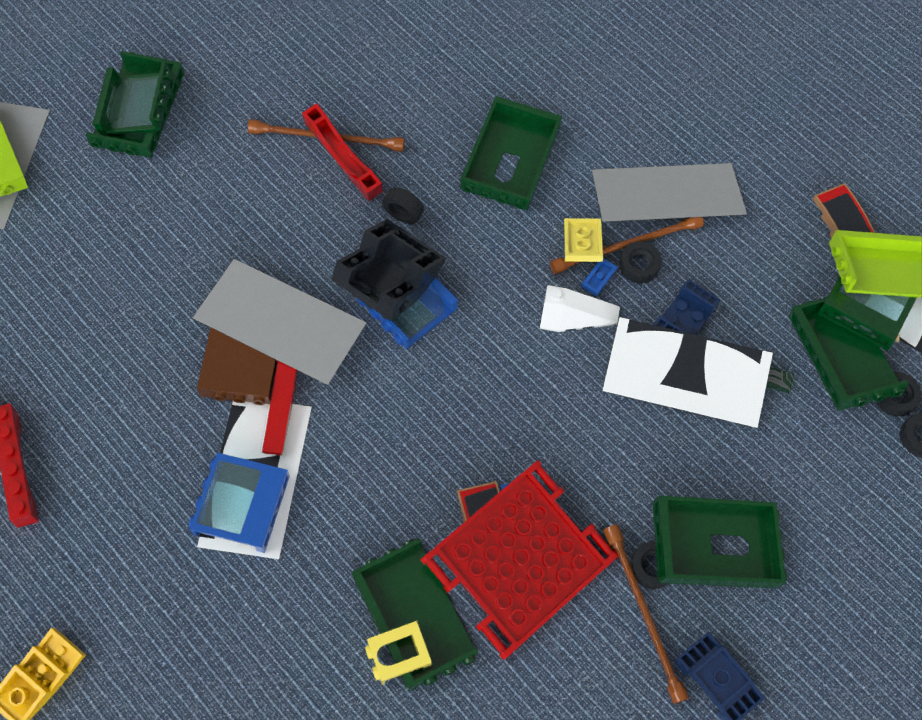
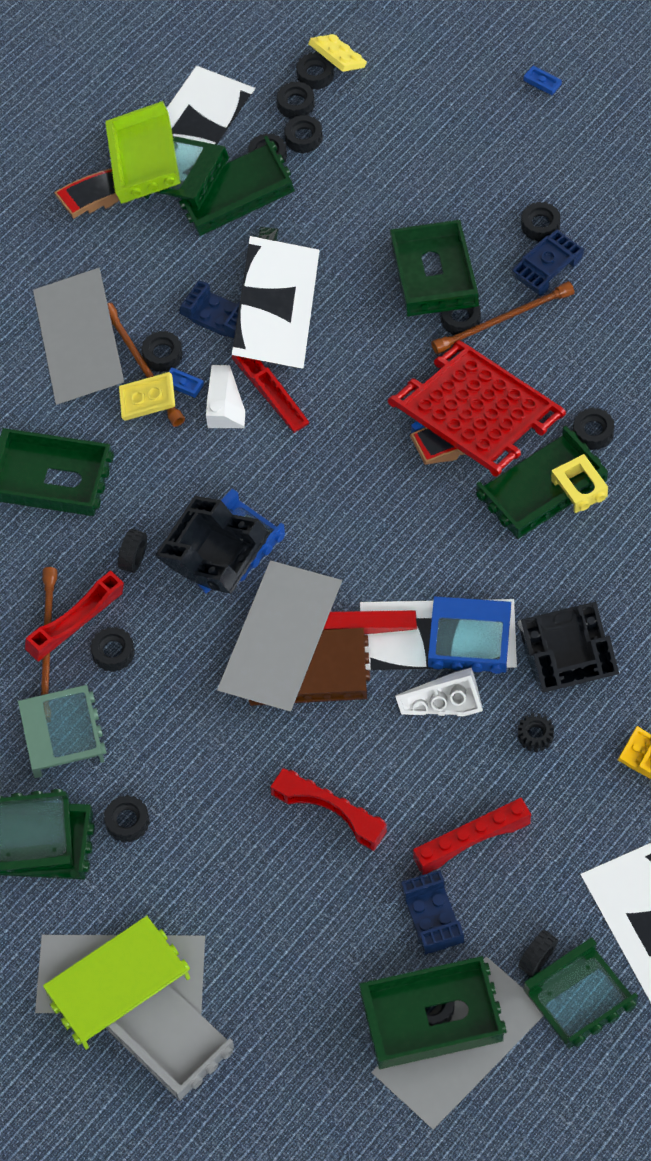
camera: 90 degrees left, 5 degrees down
(57, 369) = (294, 789): none -> red arch
(116, 560) = (539, 722): none -> black tyre
(128, 166) = (119, 805): none -> black tyre
(180, 470) = (447, 695): none -> white wedge
(193, 598) = (567, 647): none -> black slope
(232, 137) = (61, 728): none -> panel
(307, 172) = (112, 663): none -> black tyre
(493, 687) = (594, 415): none -> black tyre
(572, 360) = (272, 391): none -> red slope
(795, 671) = (540, 209): none -> black tyre

